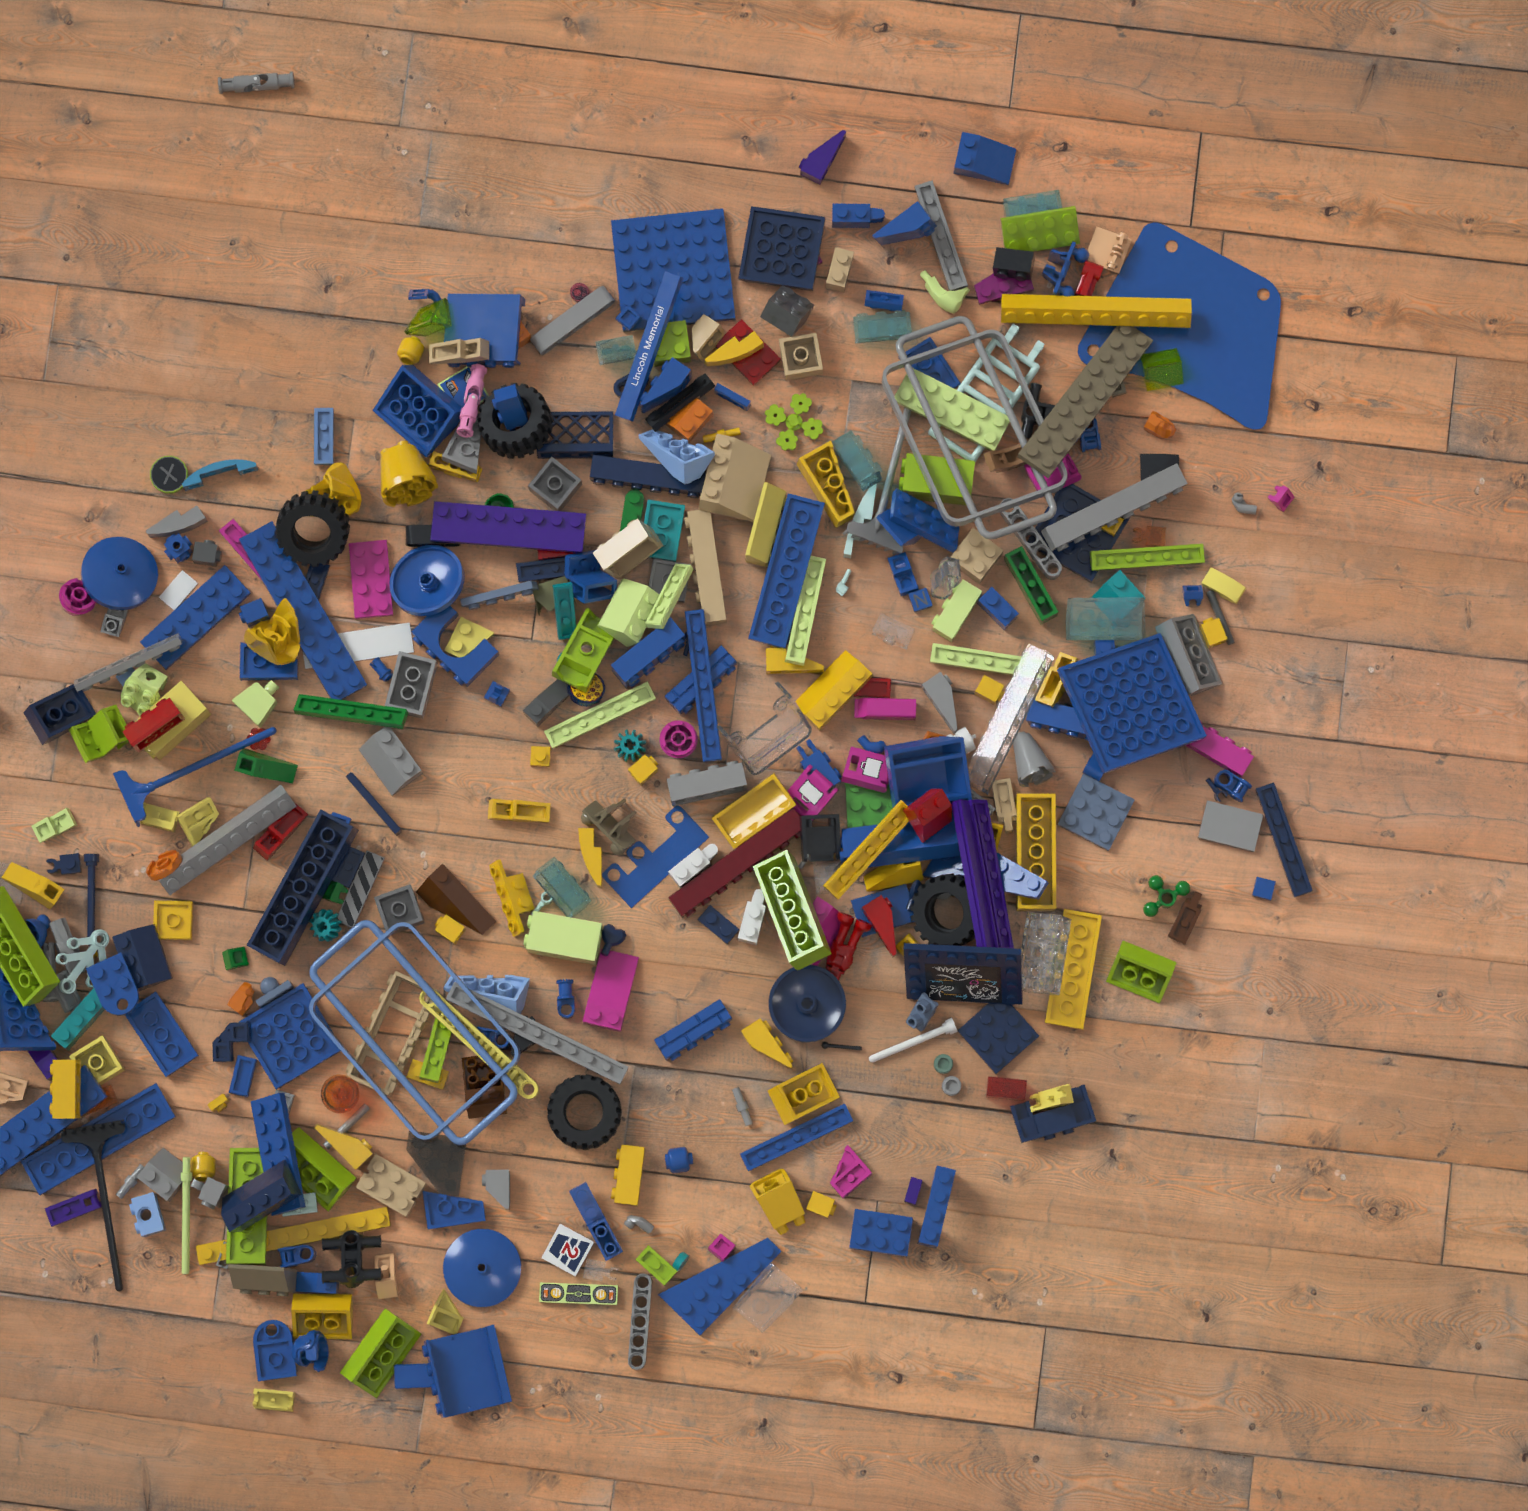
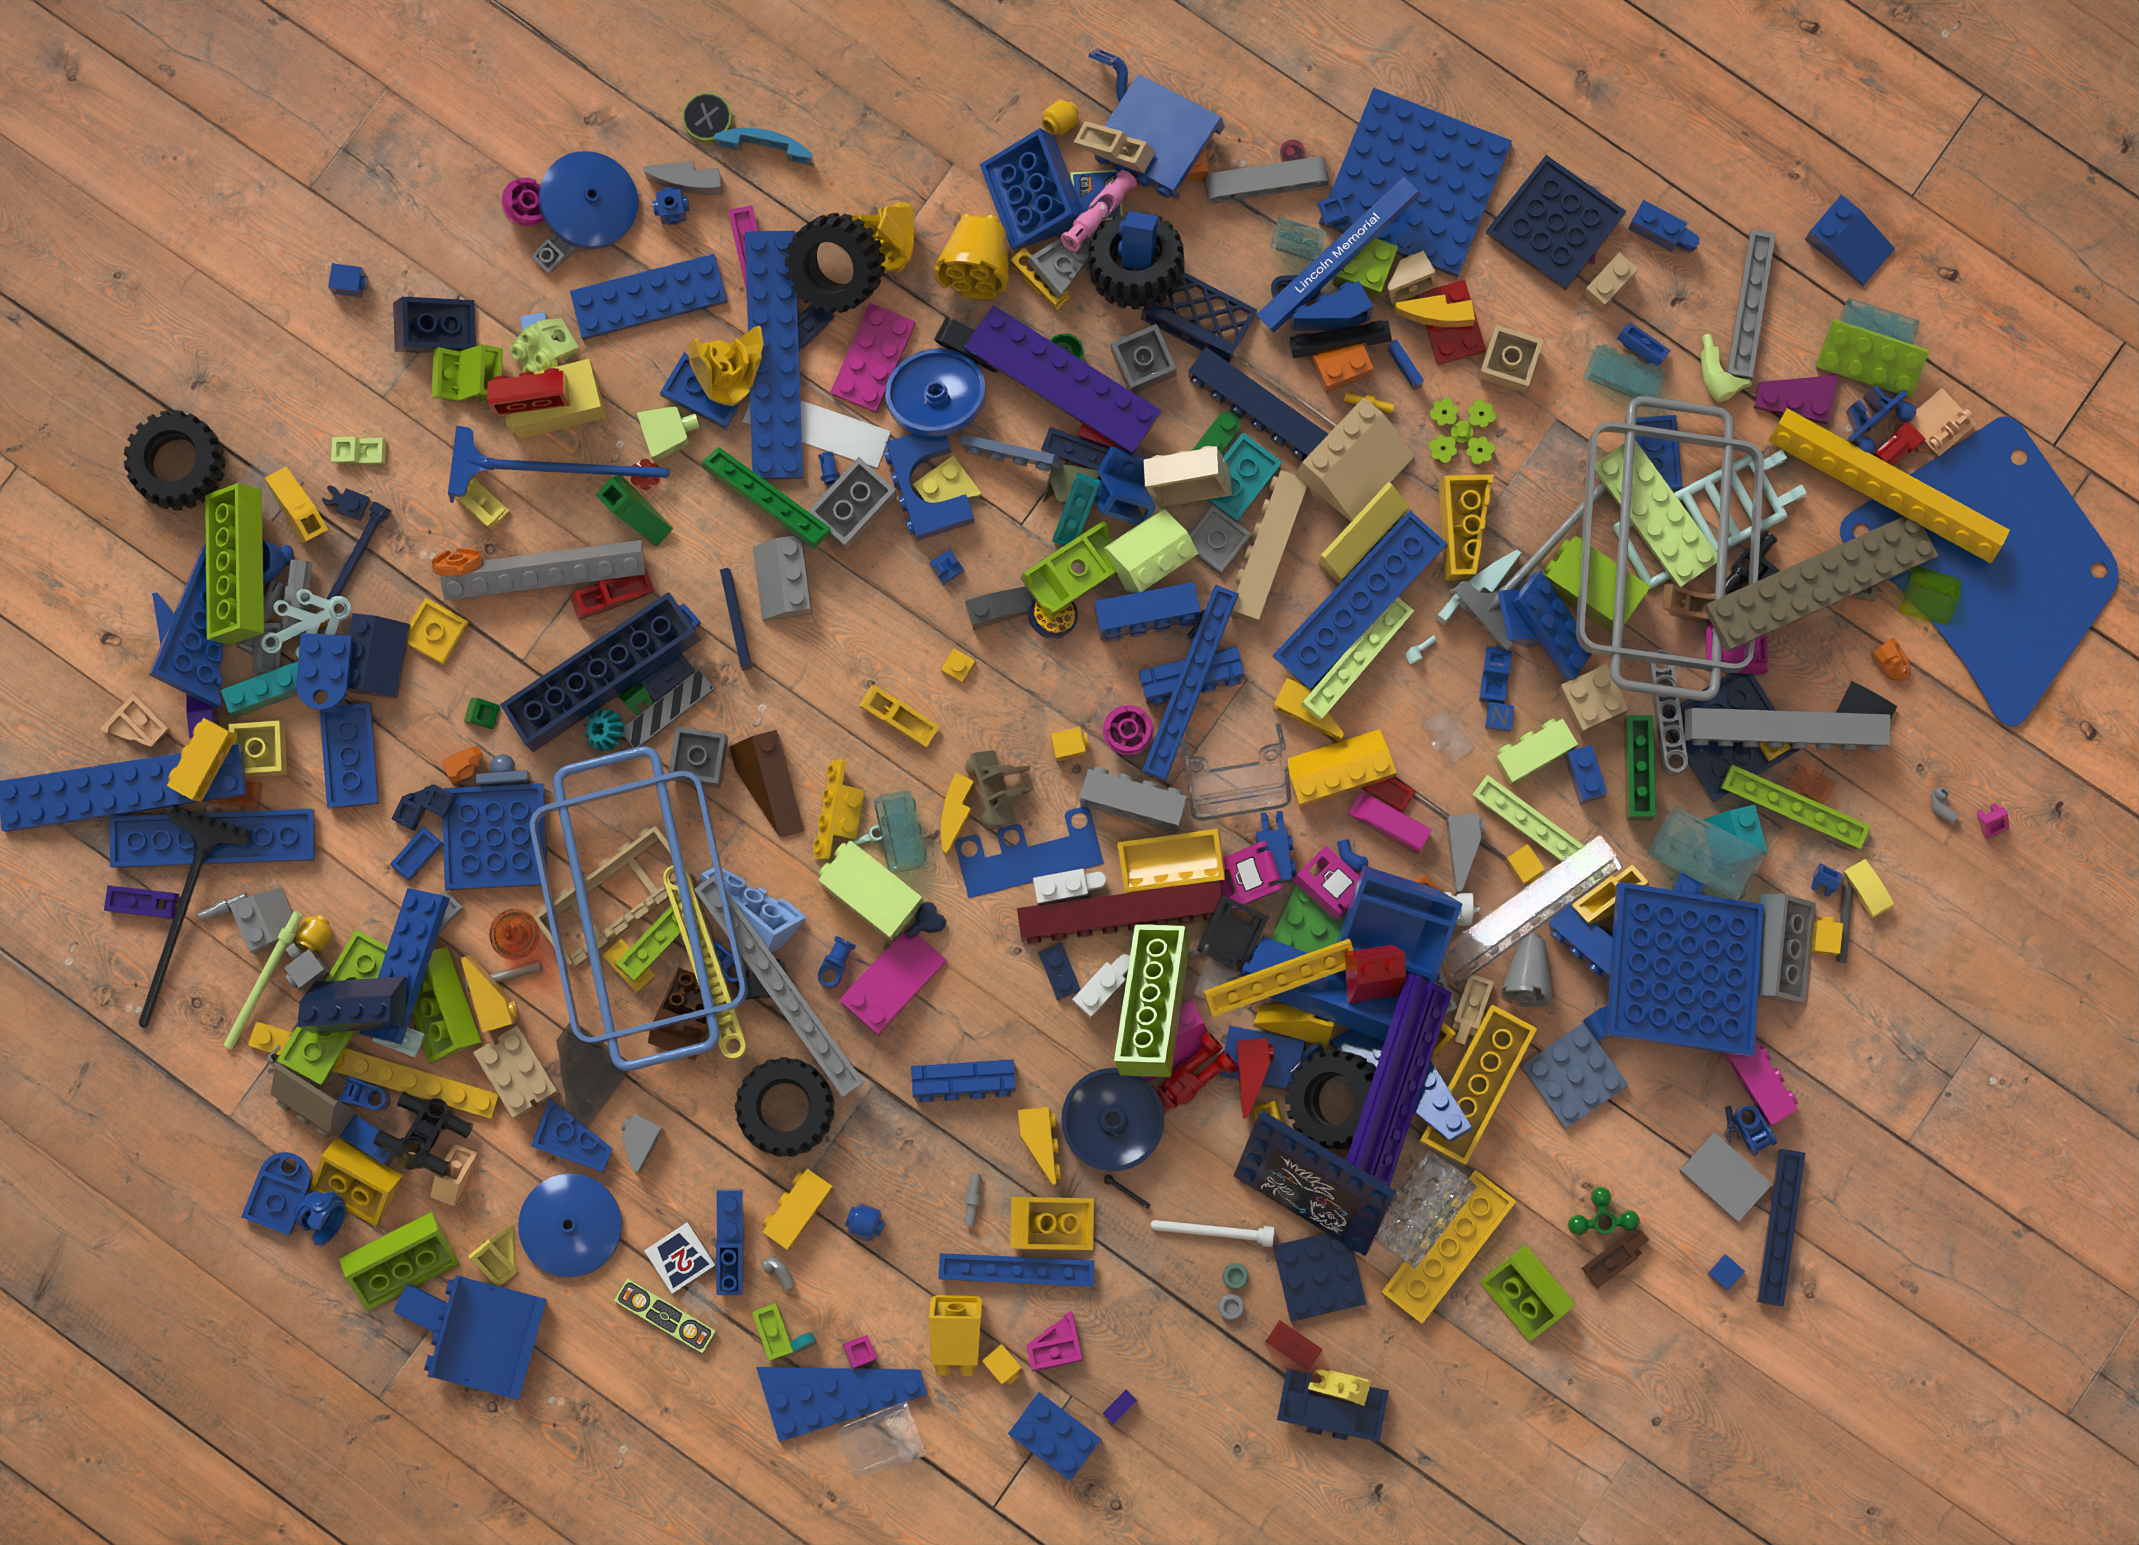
camera: 30 degrees right, 0 degrees up
(121, 666) = (532, 307): light grey plate -> none
(155, 1223) = (225, 970): light blue brick -> none
(178, 590) = (646, 255): white sticker -> none
(197, 820) = (524, 530): light yellow wing -> none
(206, 553) = (700, 229): dark grey brick -> none
(219, 1103) = (371, 871): yellow plate -> none
(254, 612) = (717, 326): blue brick -> none
(273, 1400) = (248, 1248): light yellow hinge -> none
(323, 436) = (907, 165): medium blue plate -> none
(430, 319) = (1101, 93): clear neon green slope -> none
(449, 929) = (744, 810): yellow brick -> none
(600, 715) = (1052, 654): yellowish green plate -> none
(625, 750) = (1060, 712): teal gear -> none
(640, 1331) = (706, 1394): light grey beam -> none
(669, 596) = (1206, 557): yellowish green tile -> none
(679, 457) = (1304, 401): light blue wedge -> none
(787, 310) = (1523, 297): flat silver brick -> none
(820, 159) = (1656, 142): dark purple slope -> none
(857, 460) = (1512, 514): clear light blue brick -> none
(908, 225) = (1720, 271): blue slope -> none
(922, 1012) = (1242, 1202): sand blue hips -> none
(936, 1207) = (1135, 1441): blue arch -> none
(945, 578) = (1542, 706): clear brick -> none
(1013, 264) = (1819, 380): black brick -> none
(1090, 438) = (1802, 632): blue piece -> none

